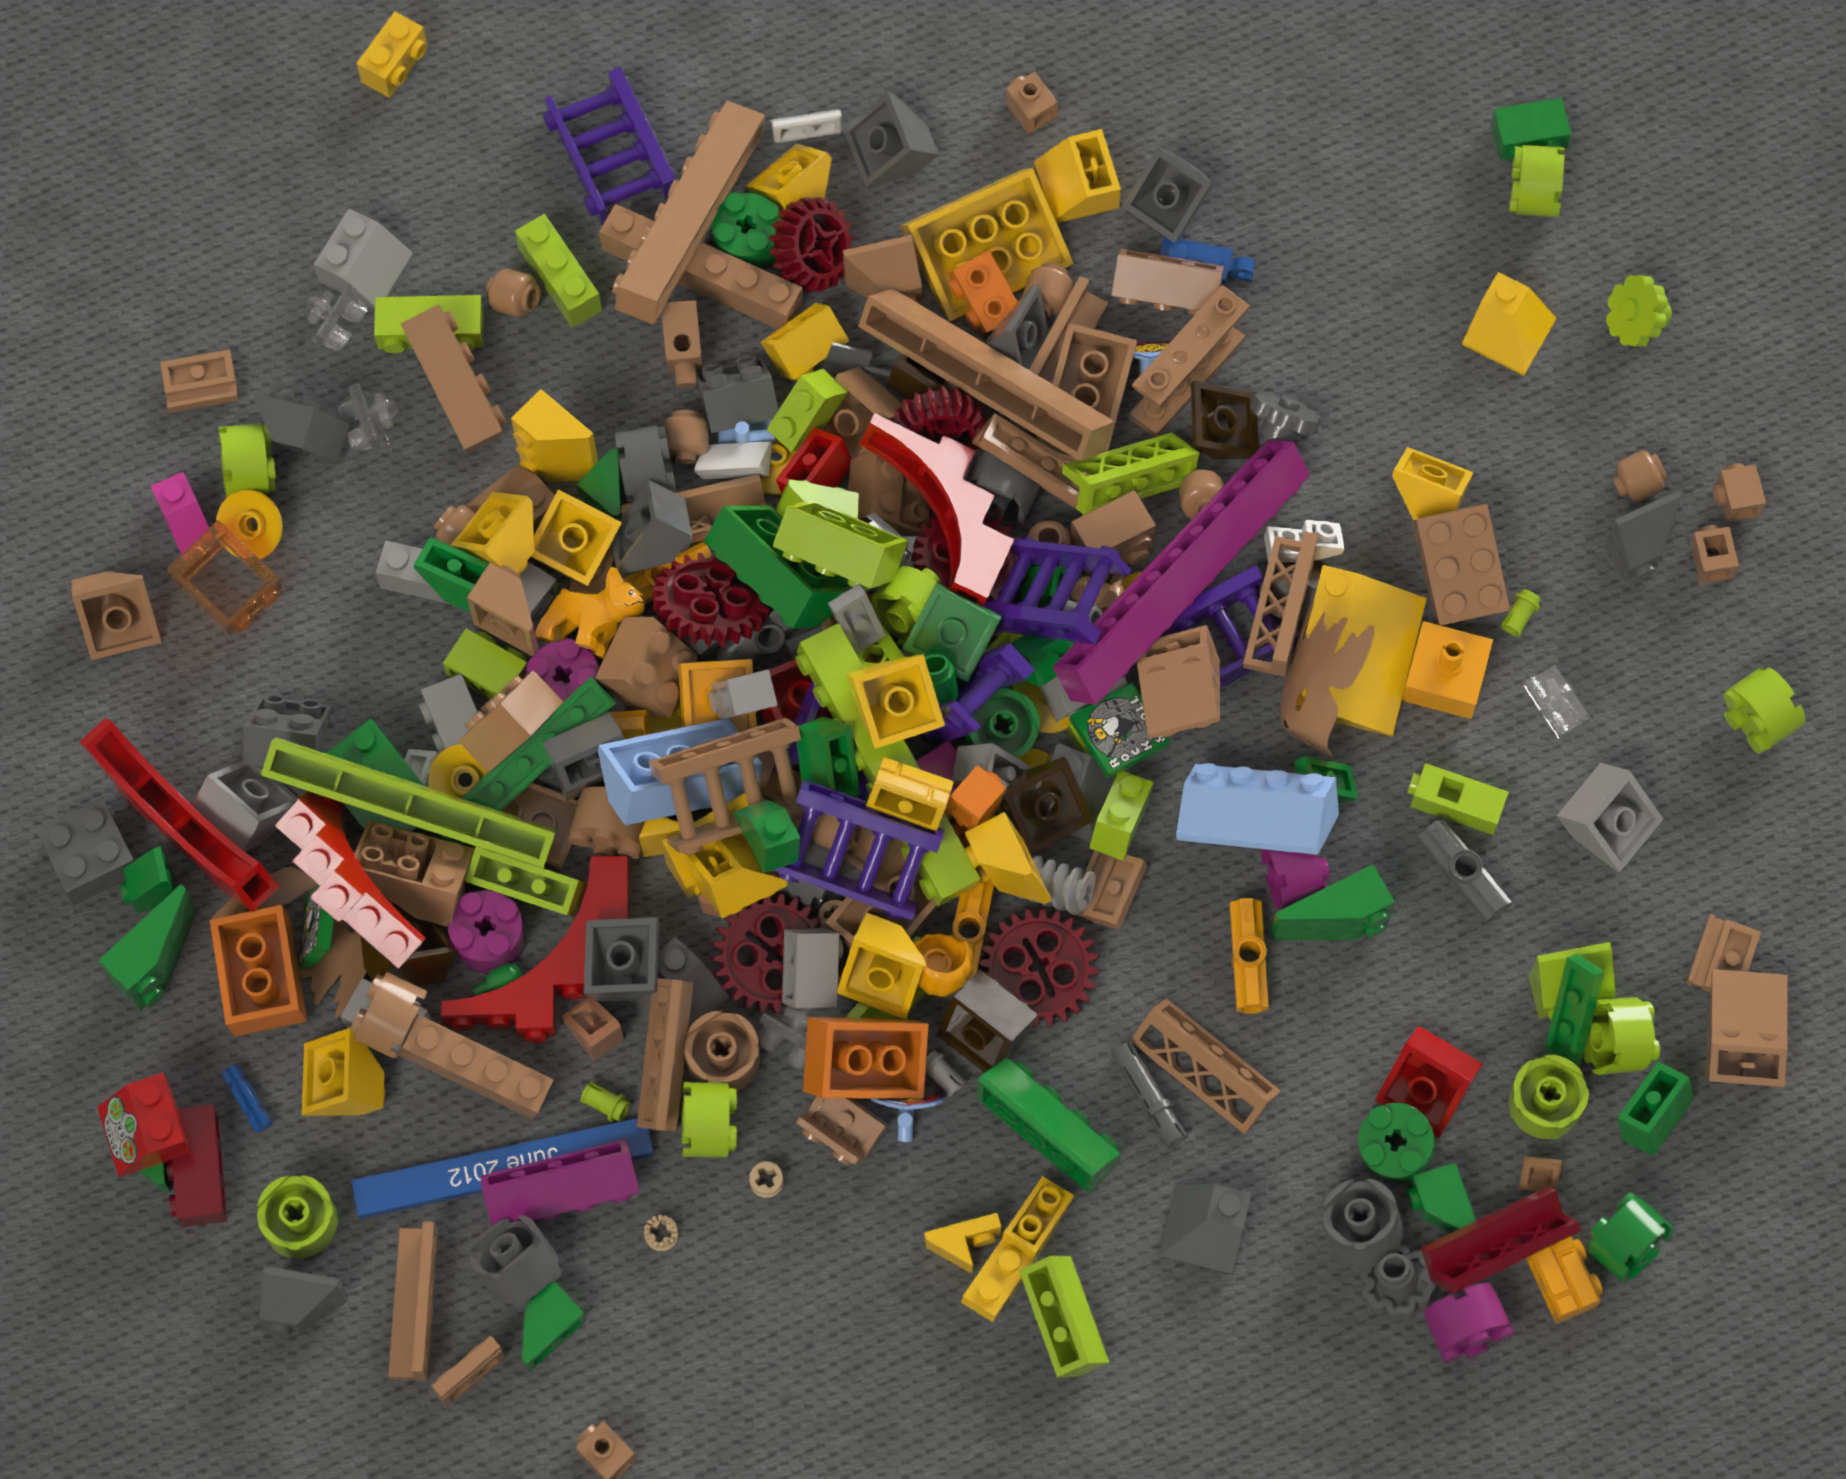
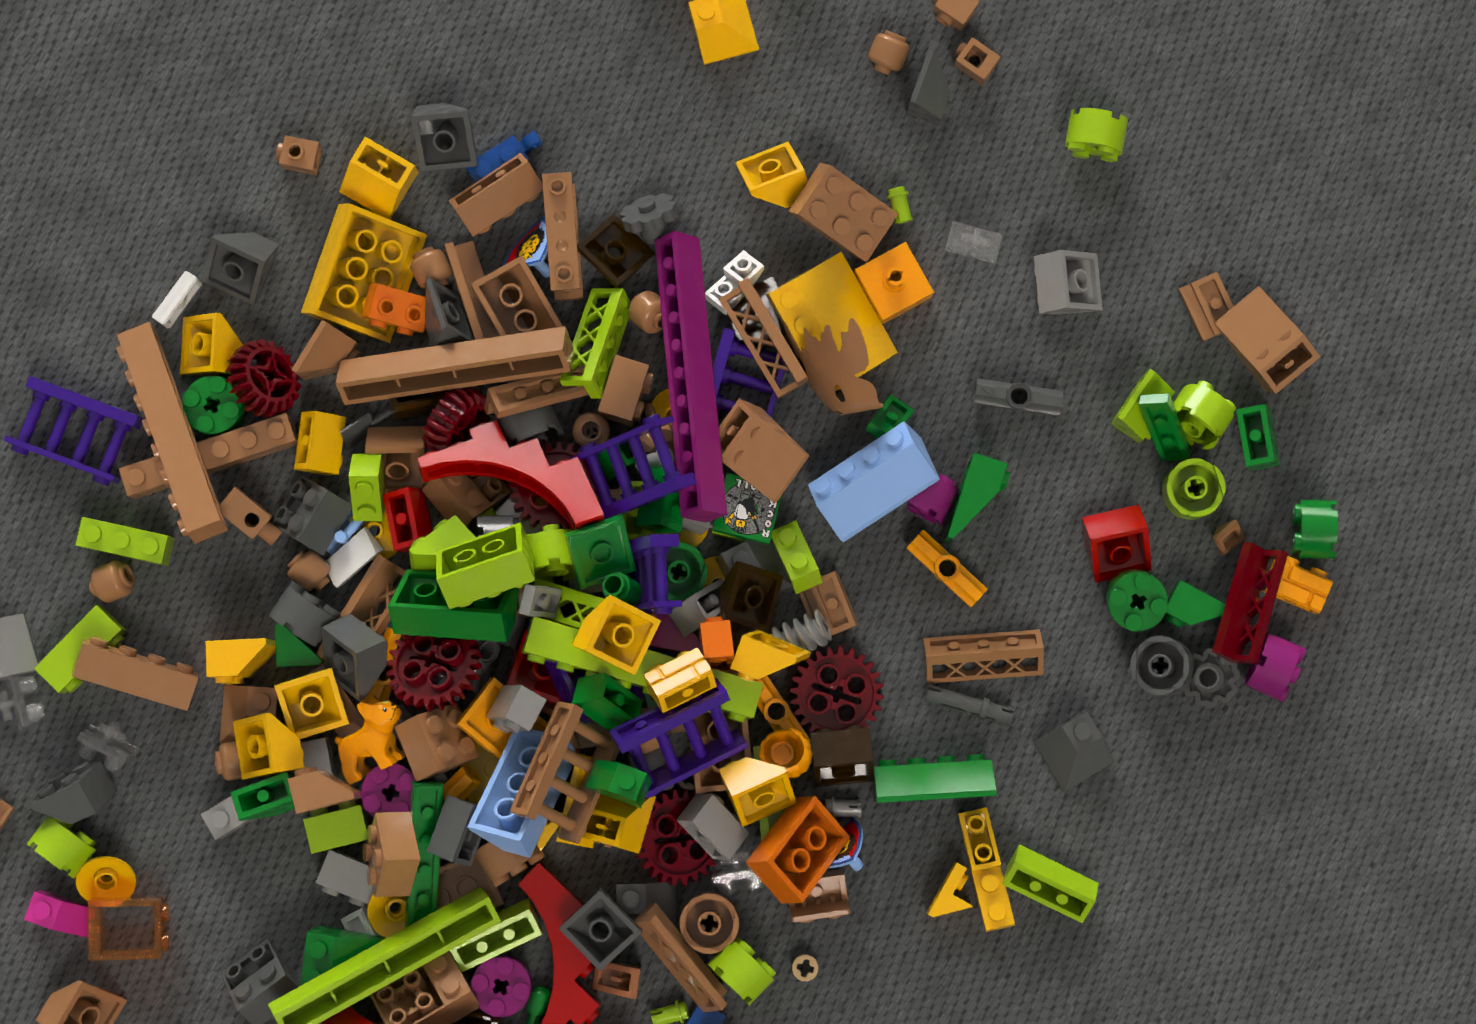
camera: 45 degrees left, 15 degrees up
(1457, 798) = (973, 356): lime brick -> none

